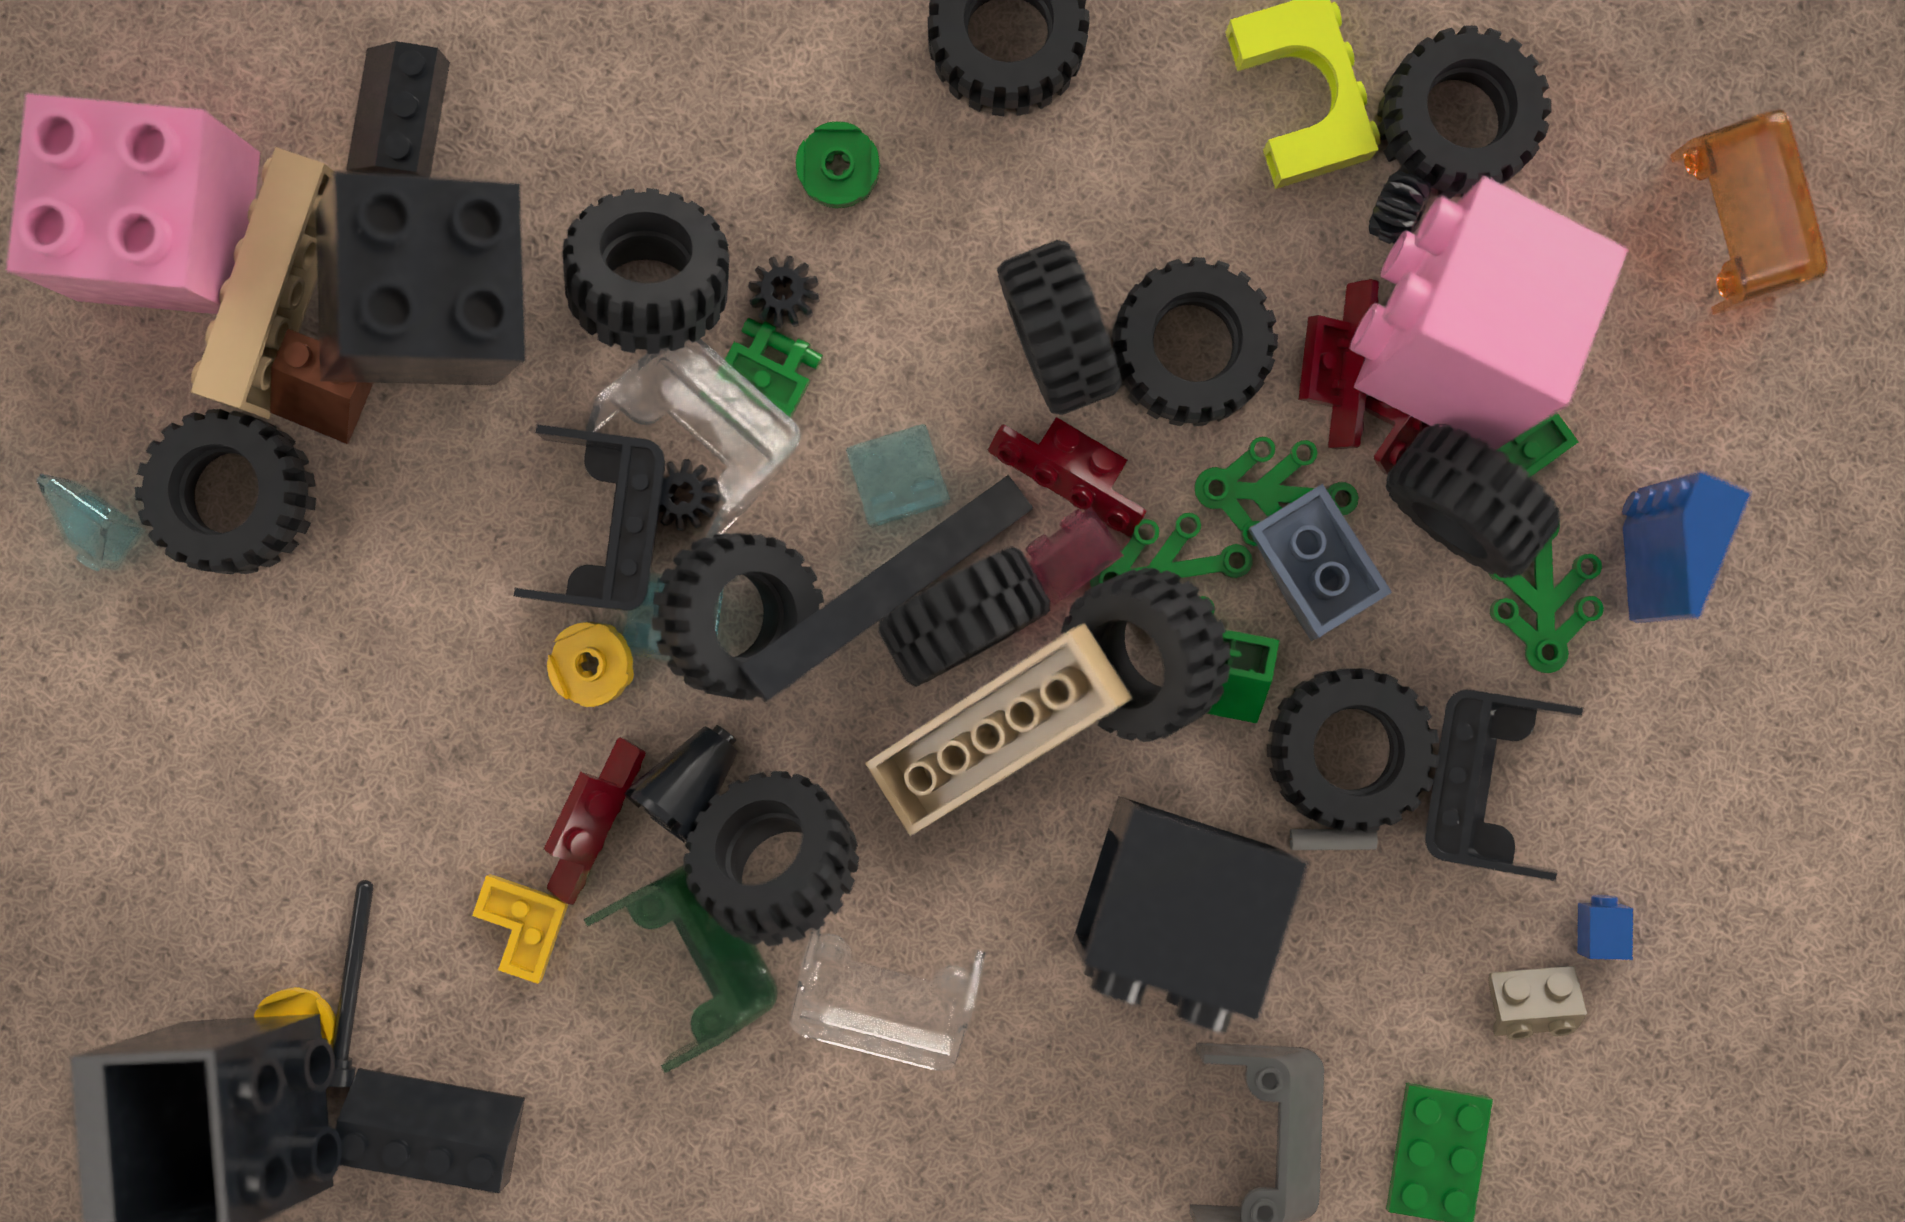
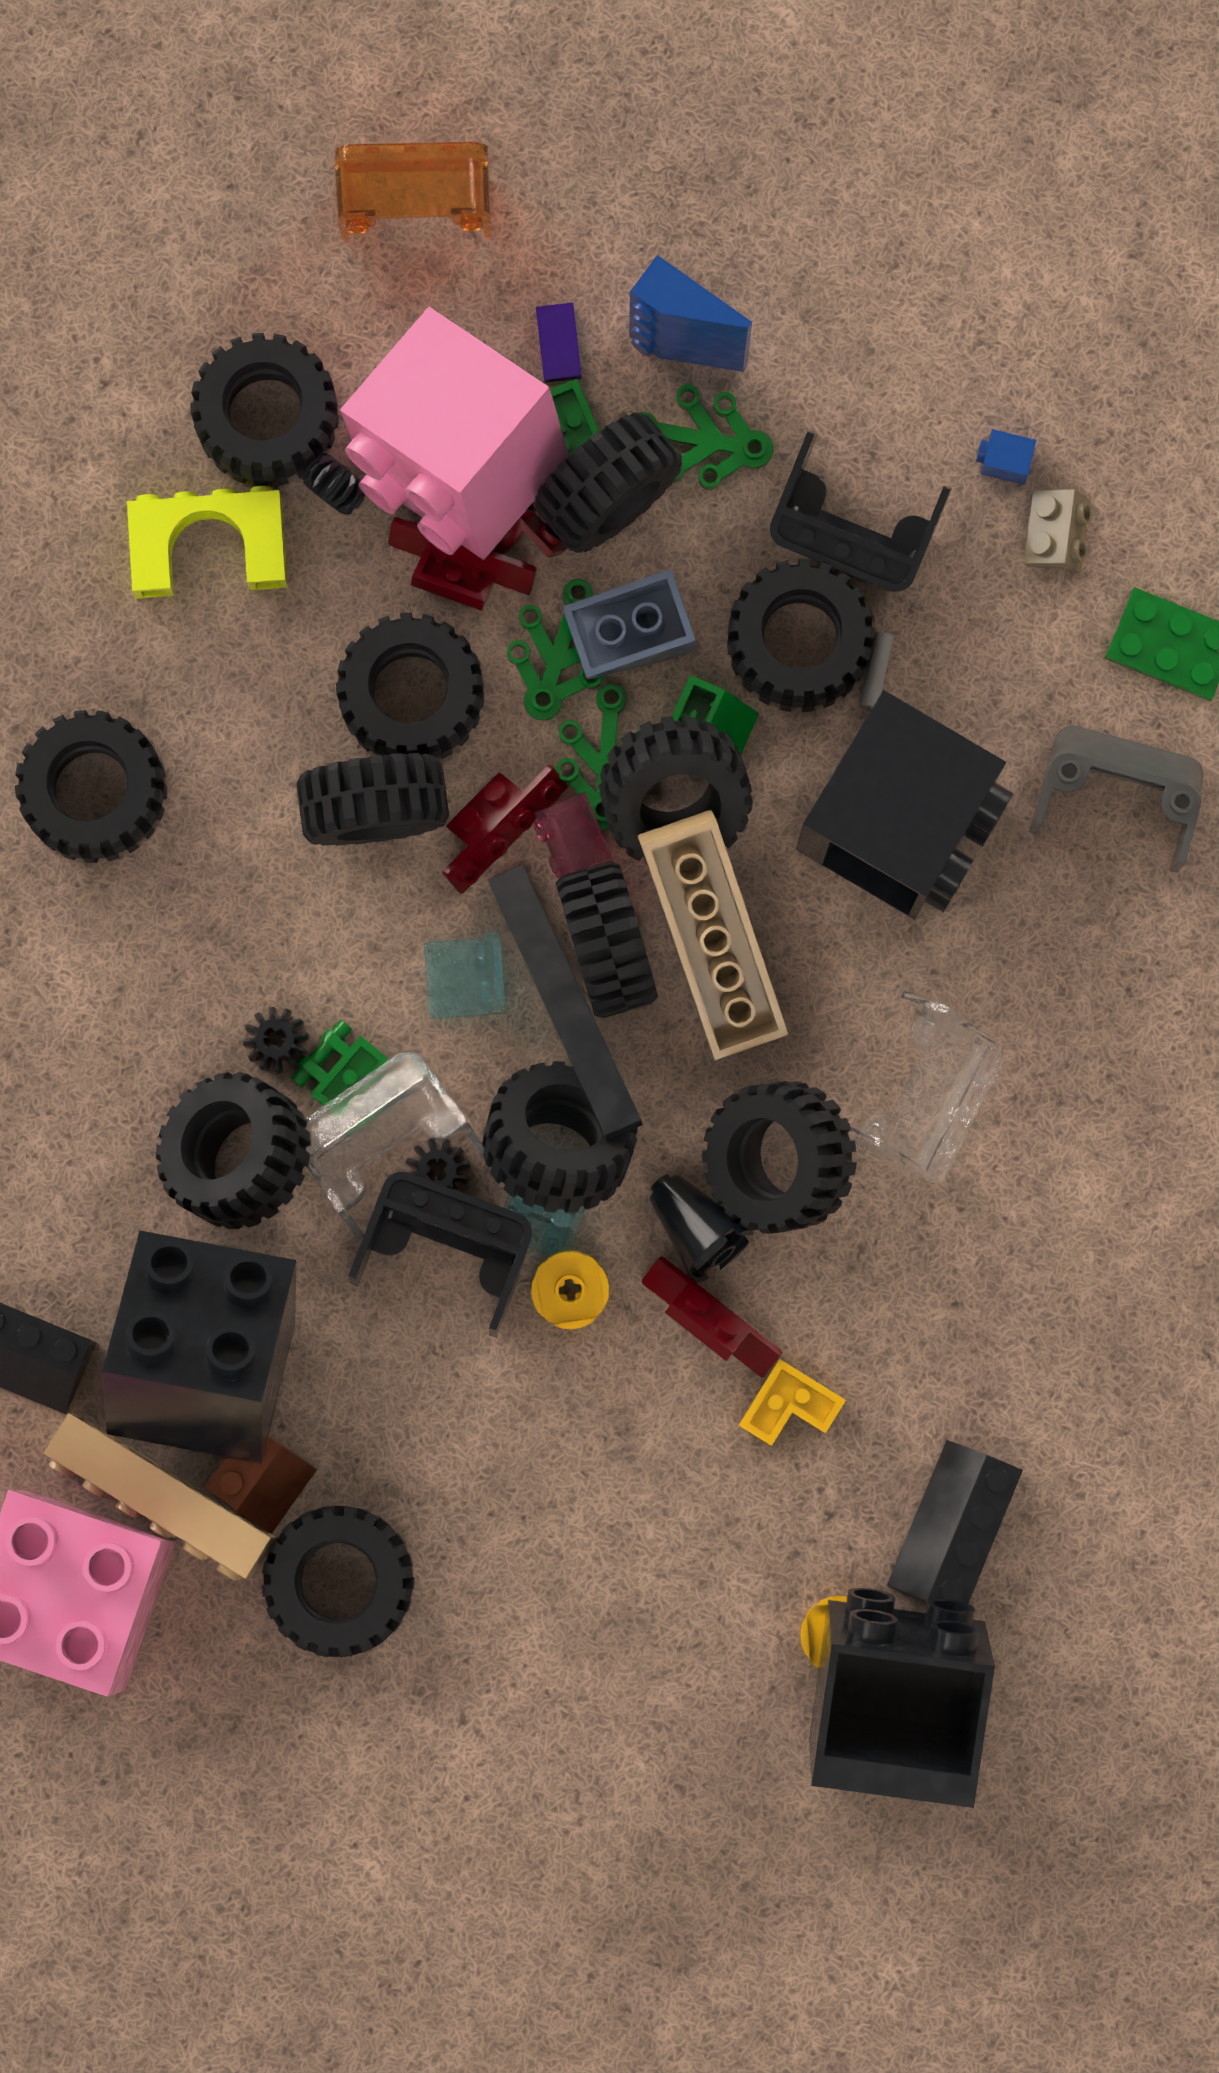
camera: 80 degrees left, 5 degrees down
(89, 523) = (339, 1713): clear light blue slope -> none
(343, 1070) = (793, 1567): black piece -> none
(730, 967) = (853, 1224): clear green windscreen -> none
(820, 148) = (161, 948): green plate -> none
(1613, 413) = (558, 342): none -> dark purple tile

